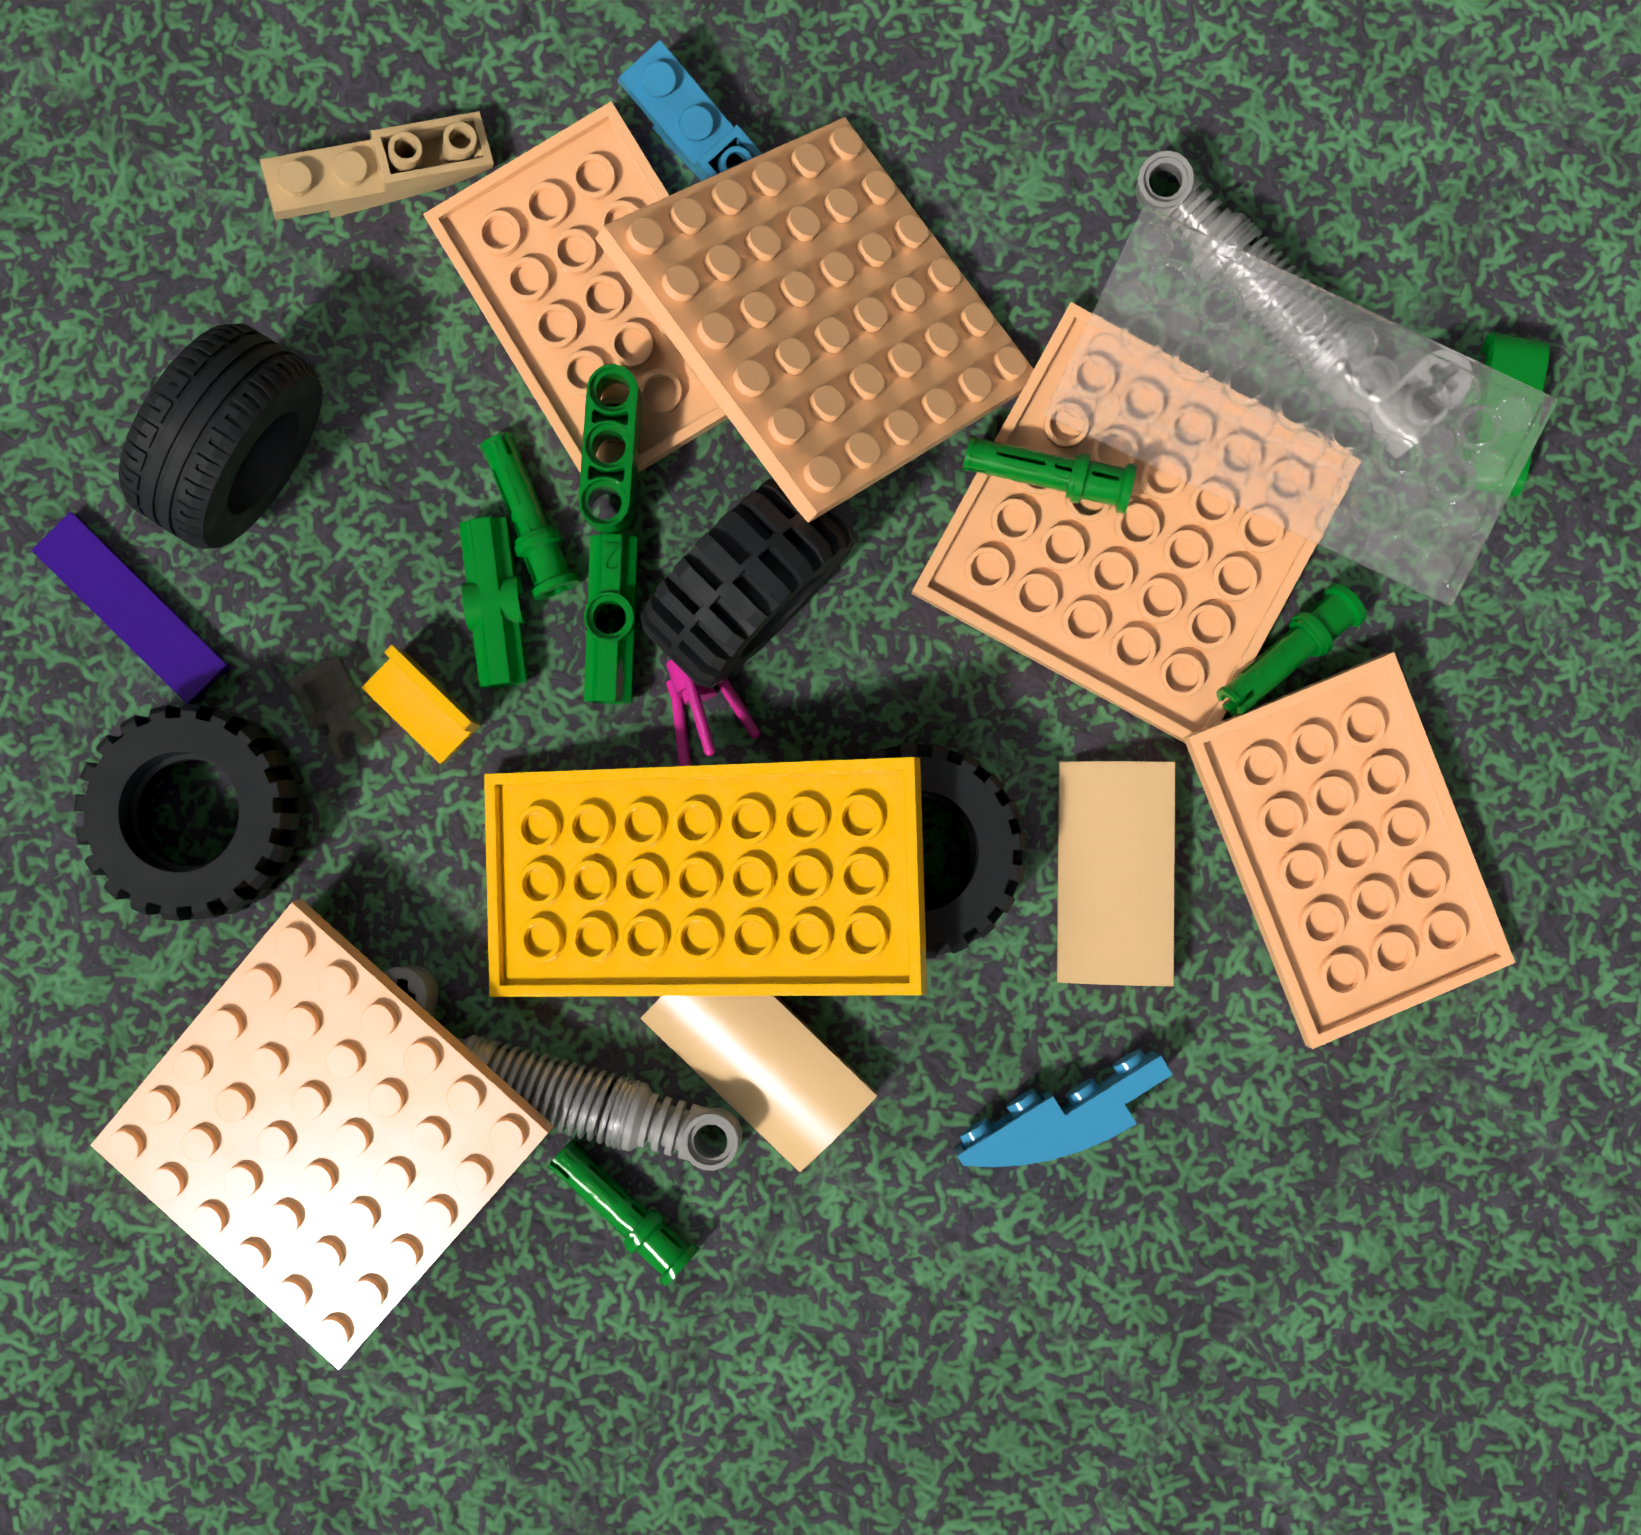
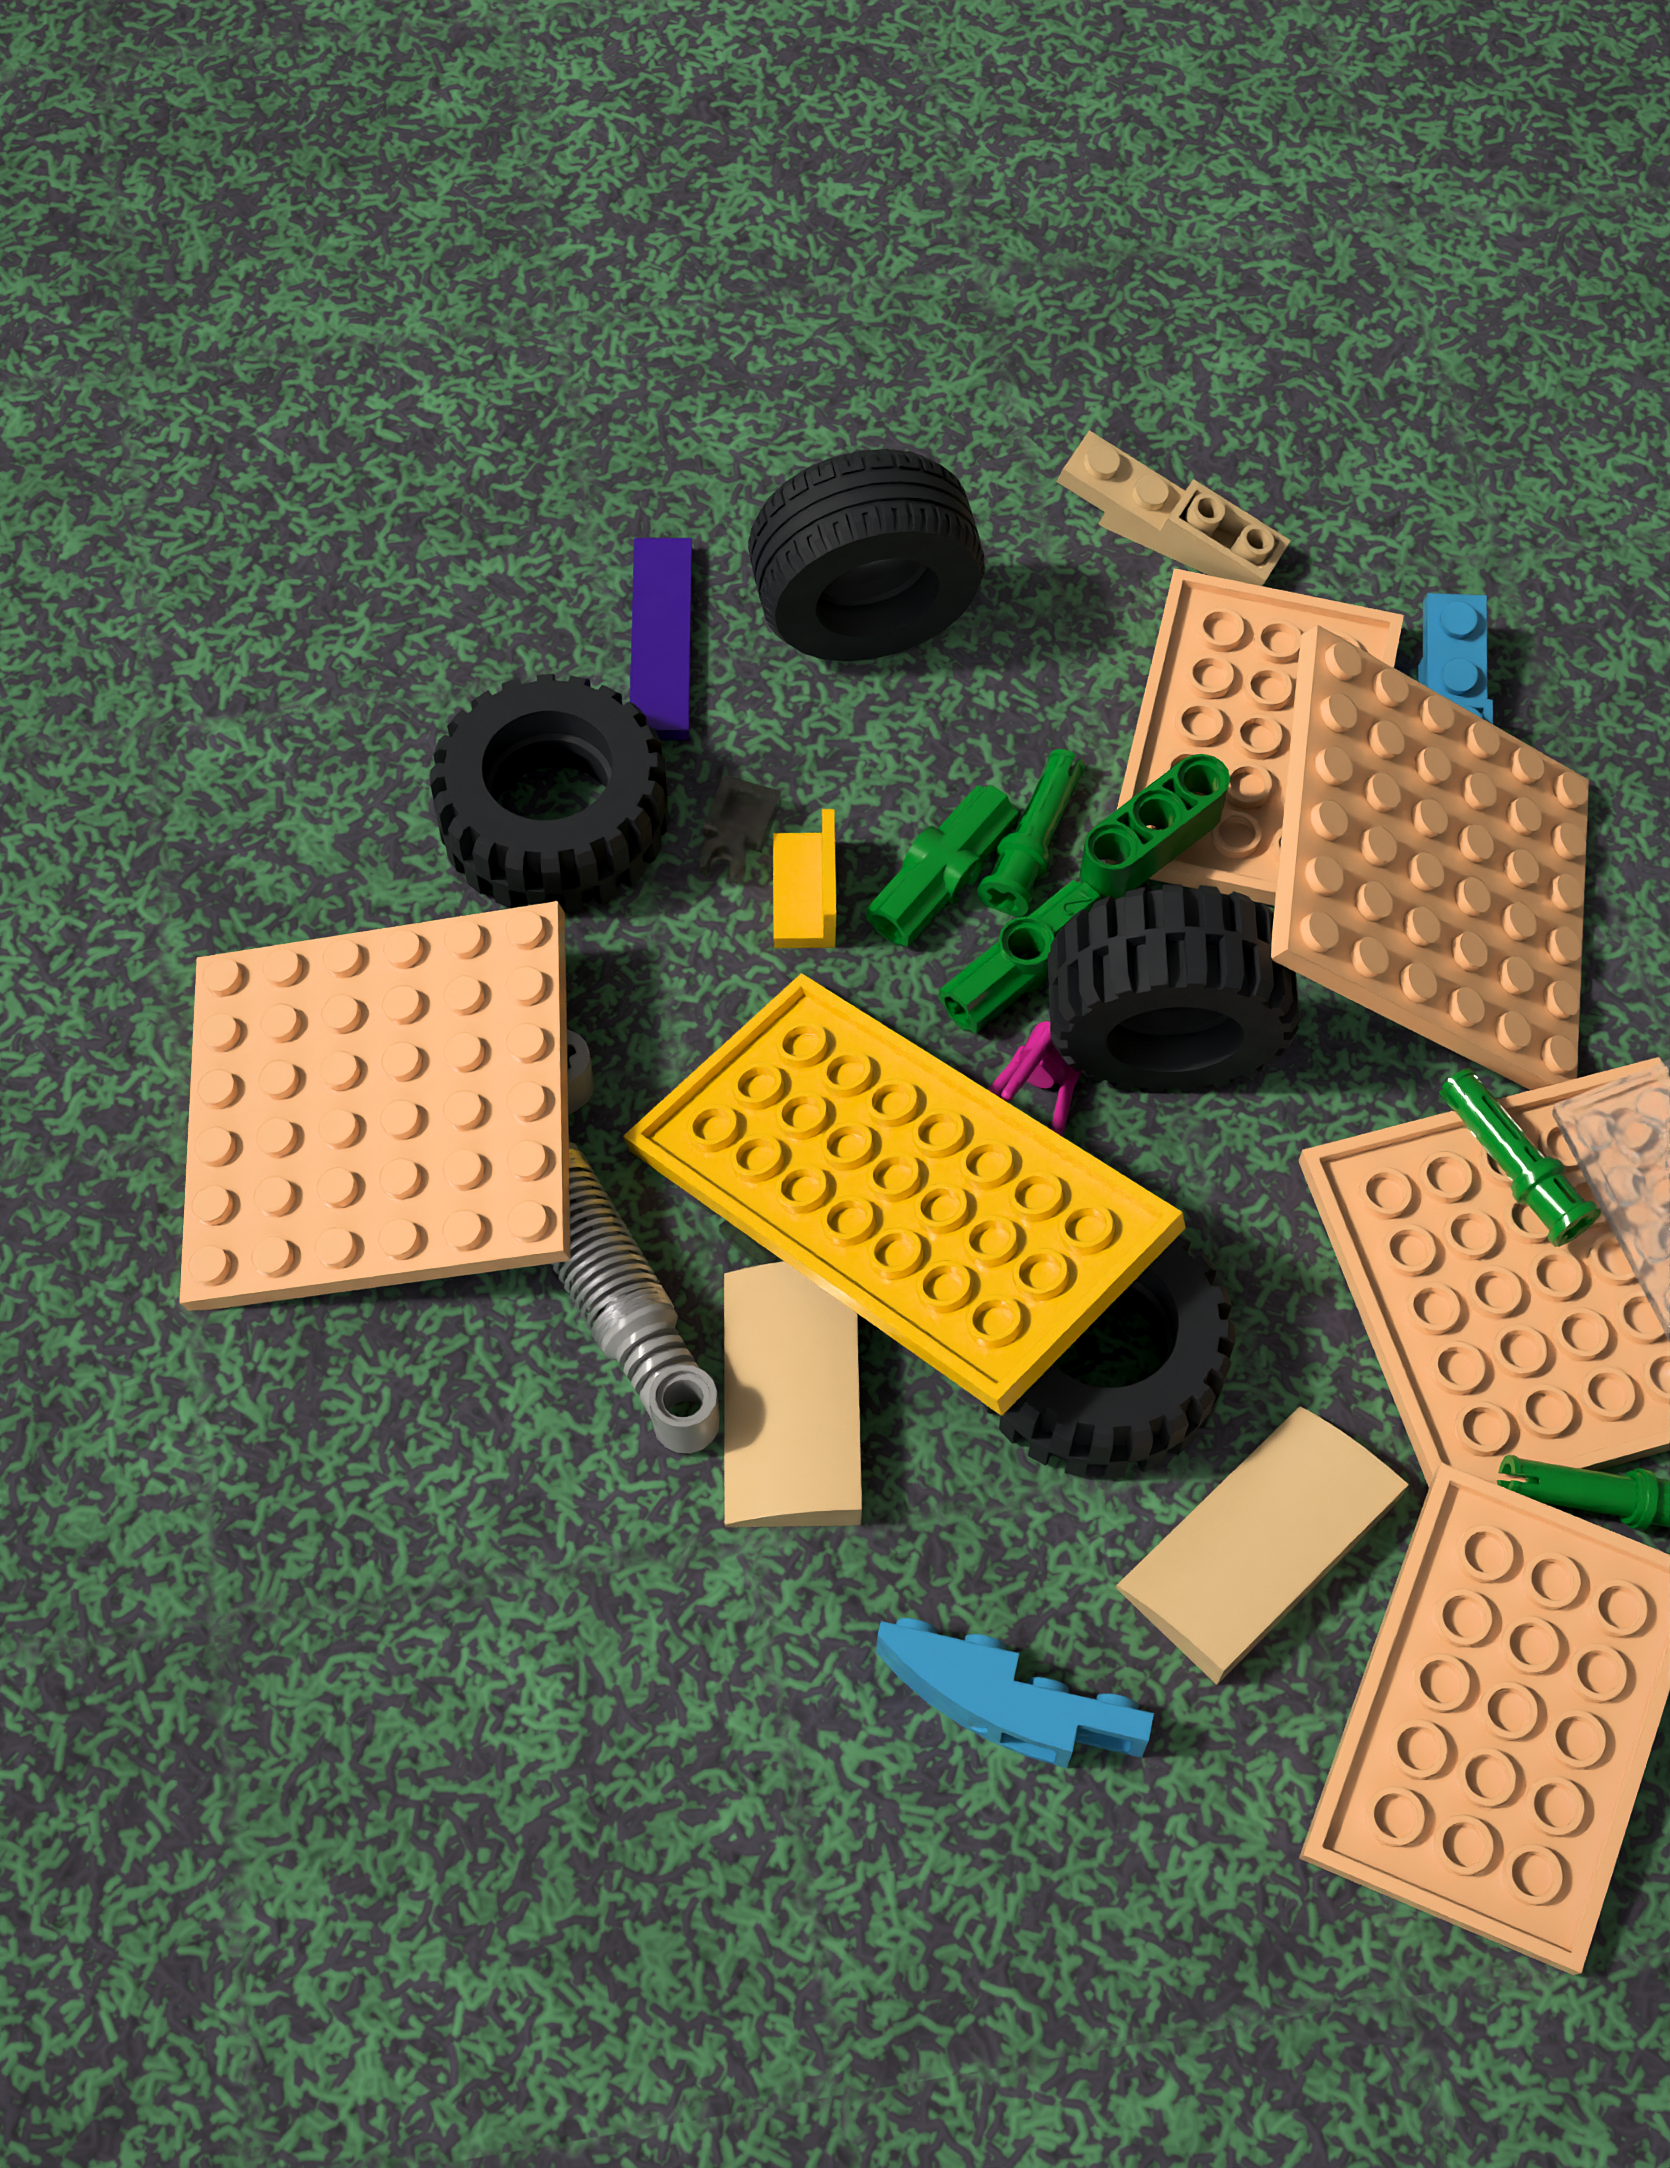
camera: 45 degrees right, 25 degrees down
(642, 1229) = (543, 1432): green pin -> none

